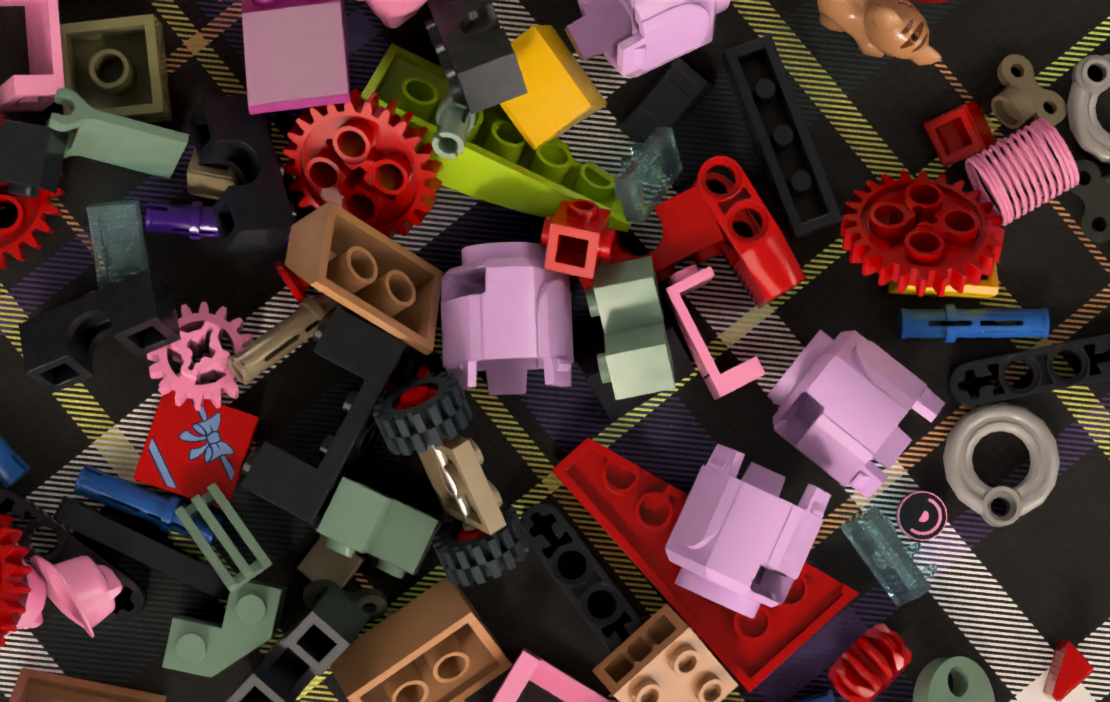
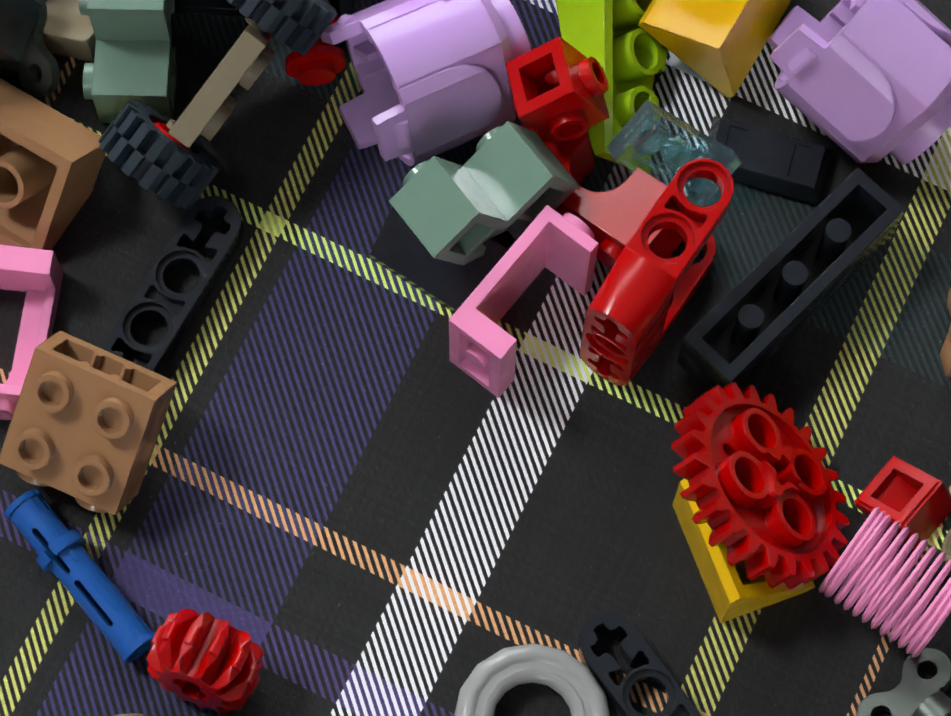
camera: 65 degrees right, 15 degrees down
(640, 517) = (239, 451): red wing -> none
(741, 538) = (289, 423): lavender piece -> none
(846, 405) = (509, 491): lavender piece -> none
(884, 554) = (365, 608): clear light blue plate -> none
(921, 515) = (420, 656): black tile -> none
(1030, 323) = (650, 542): blue pin -> none

